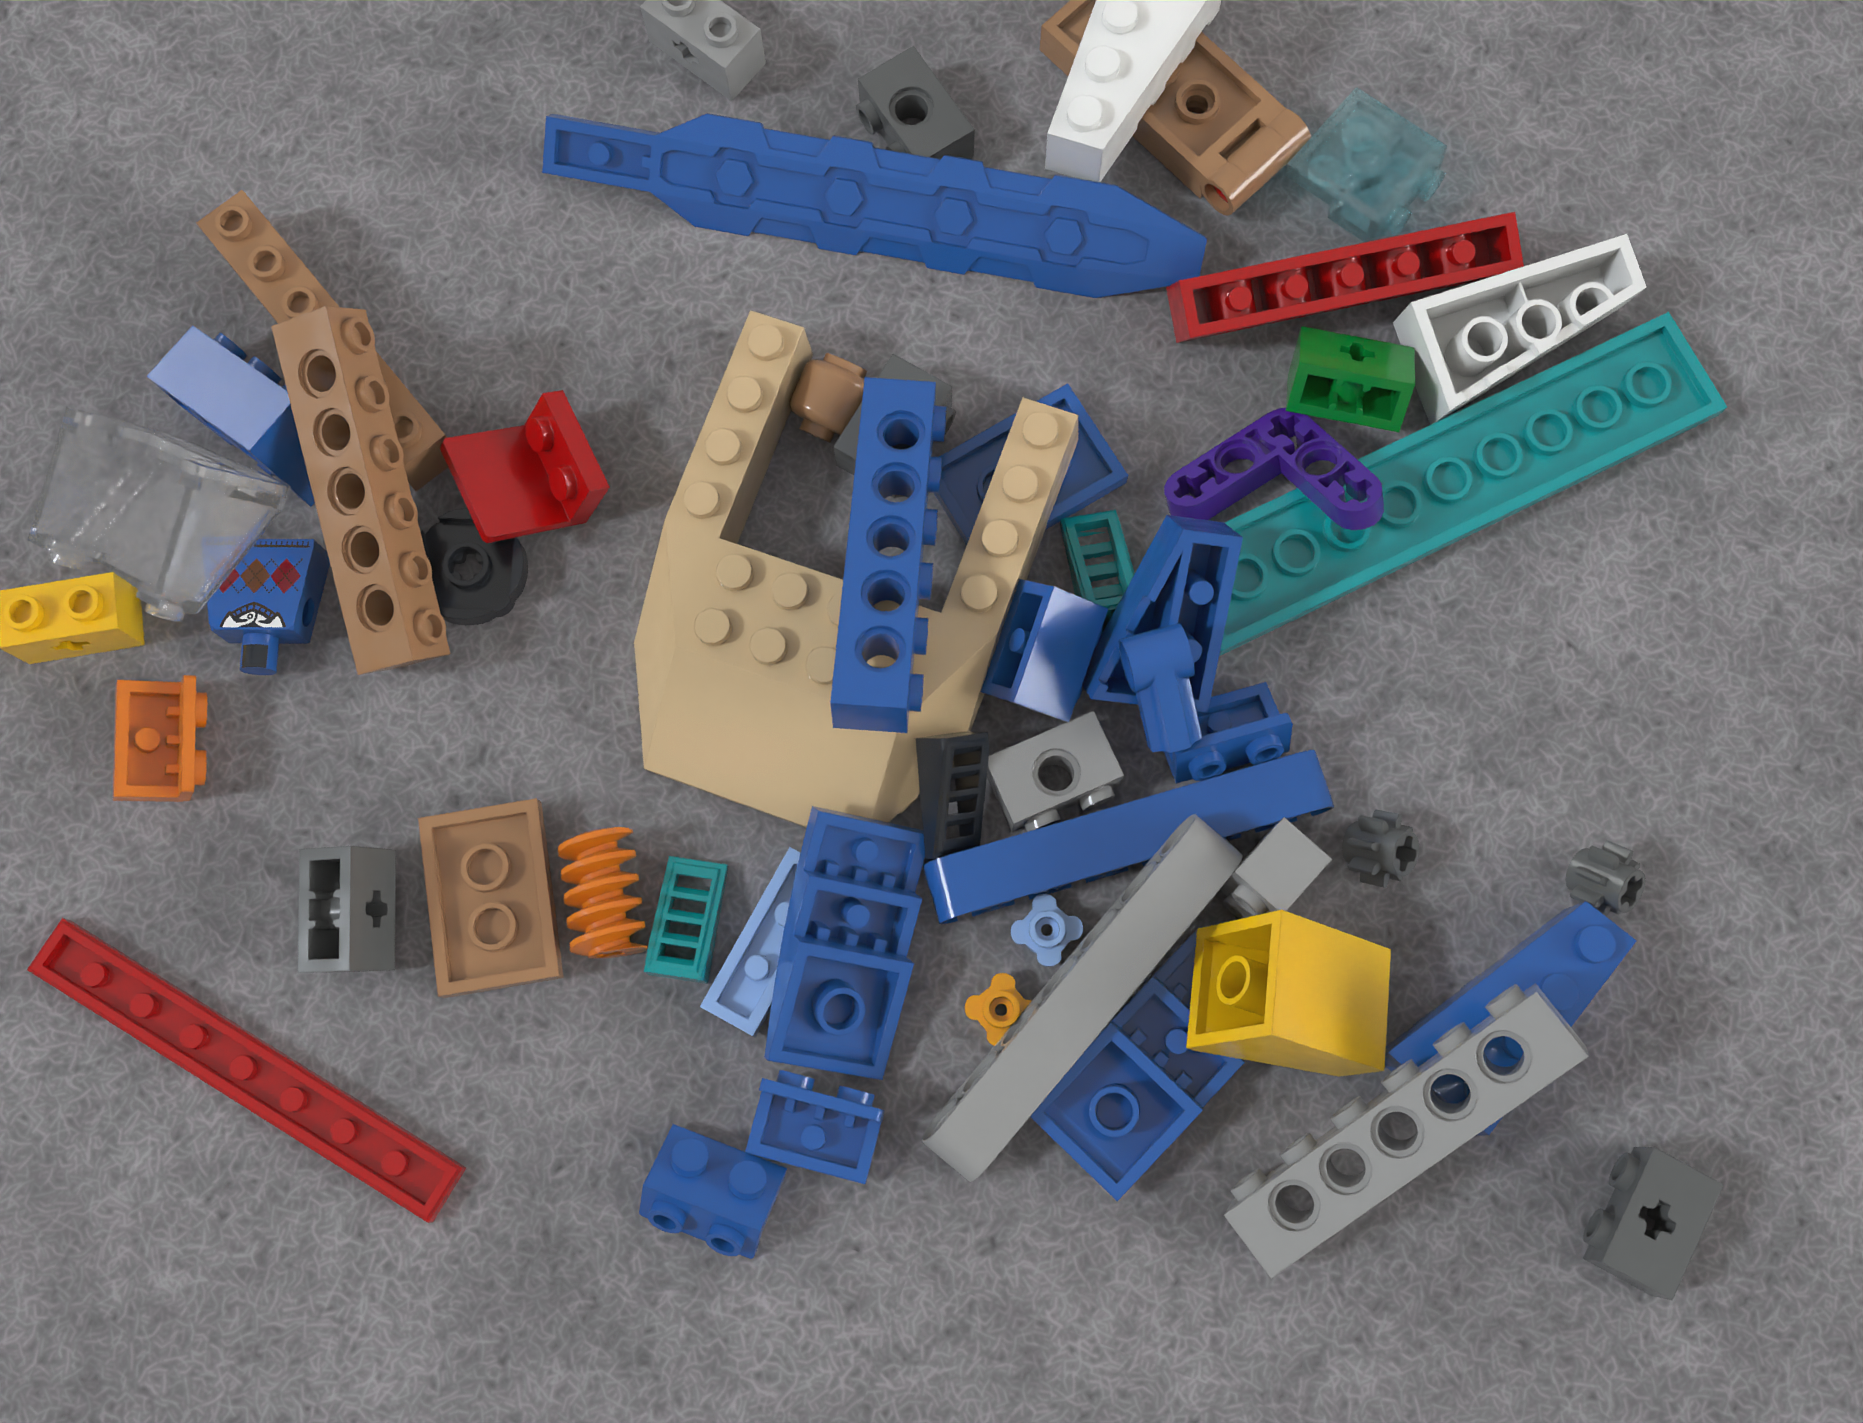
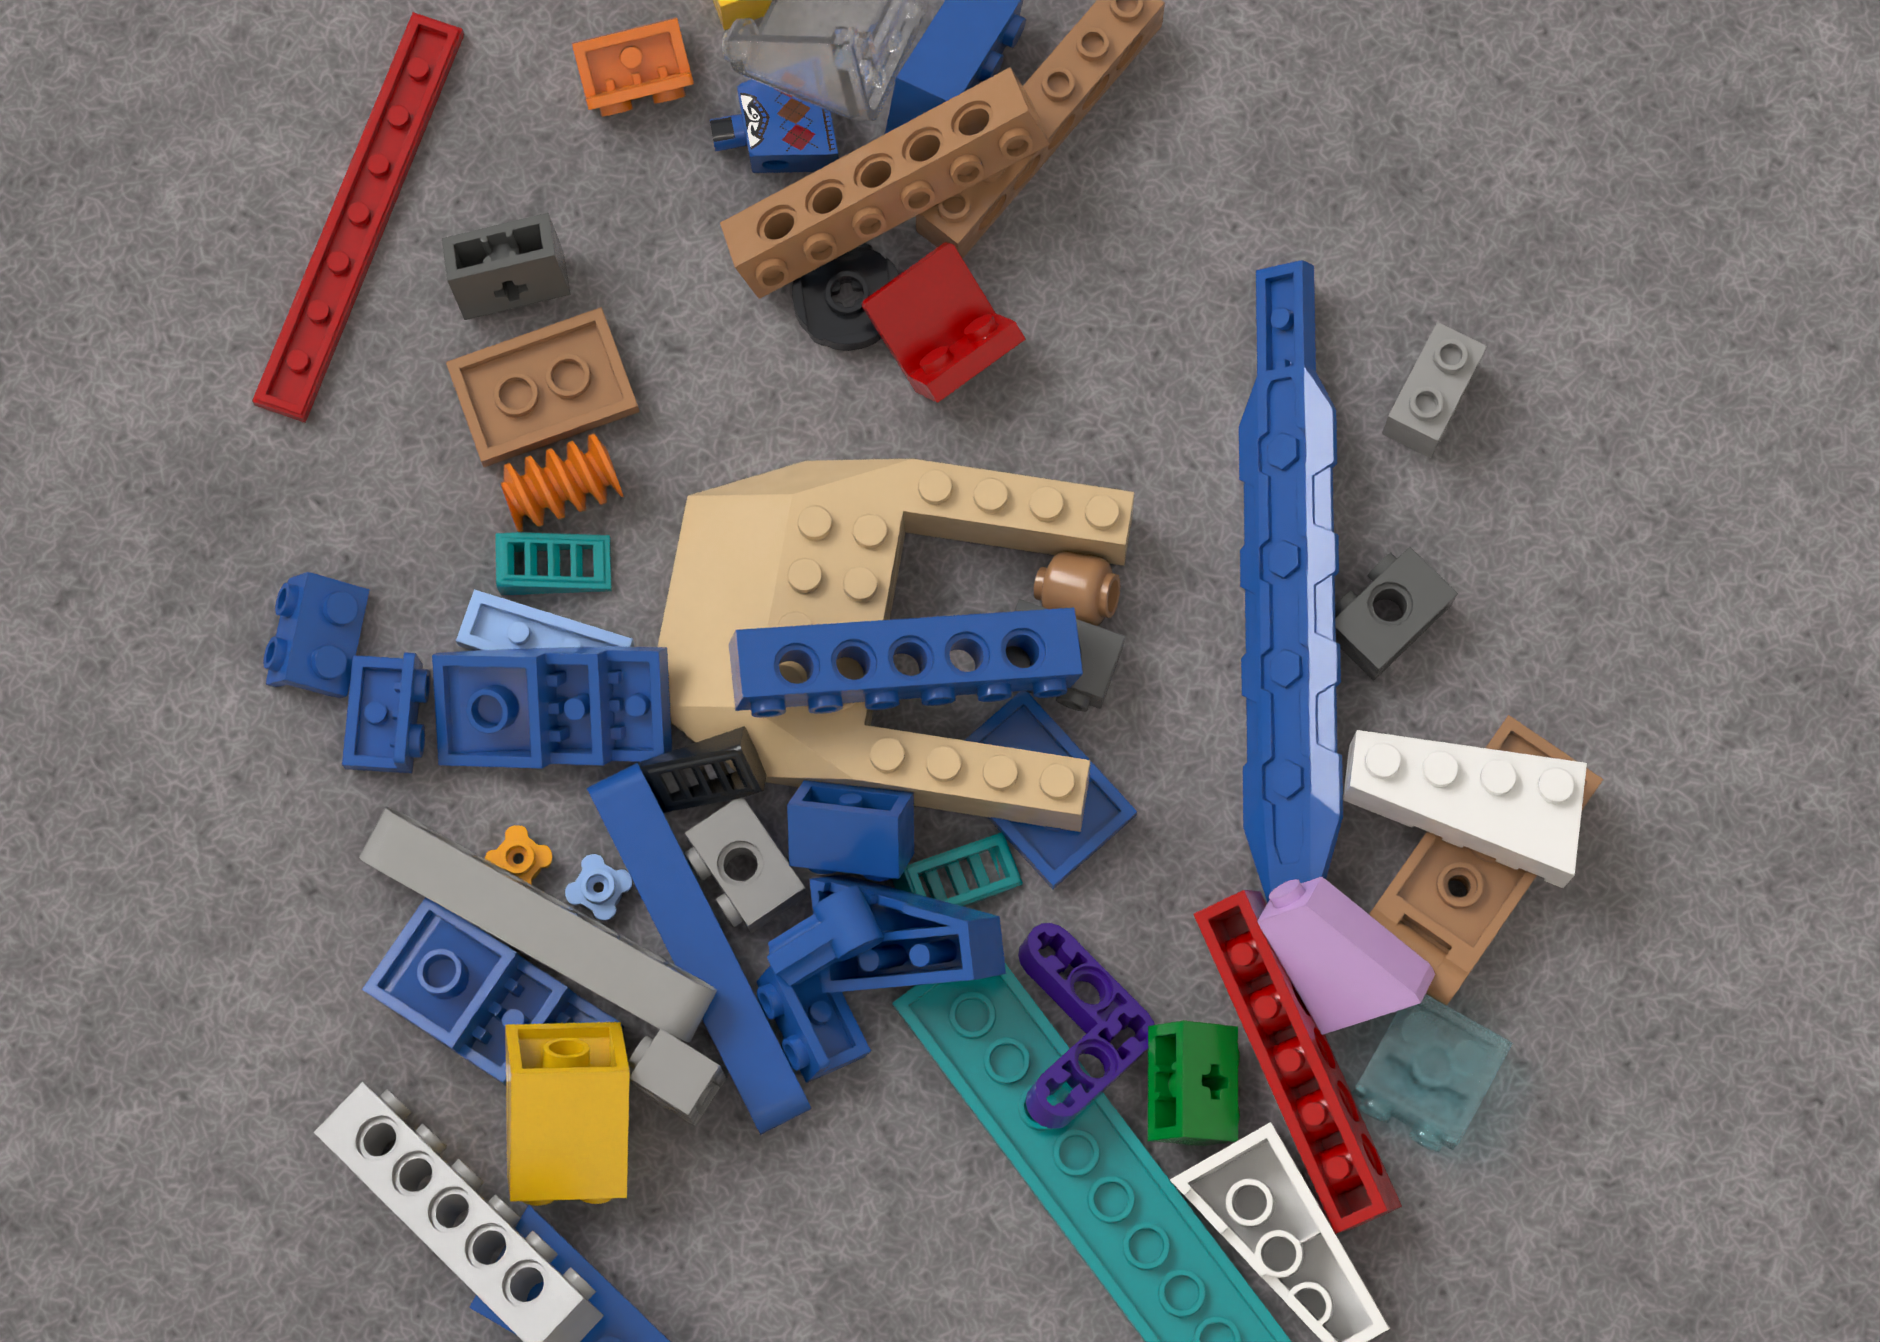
camera: 80 degrees right, 0 degrees up
(1257, 209) = (1340, 956): none -> lavender slope
(1380, 848) = (726, 1182): dark grey gear -> none

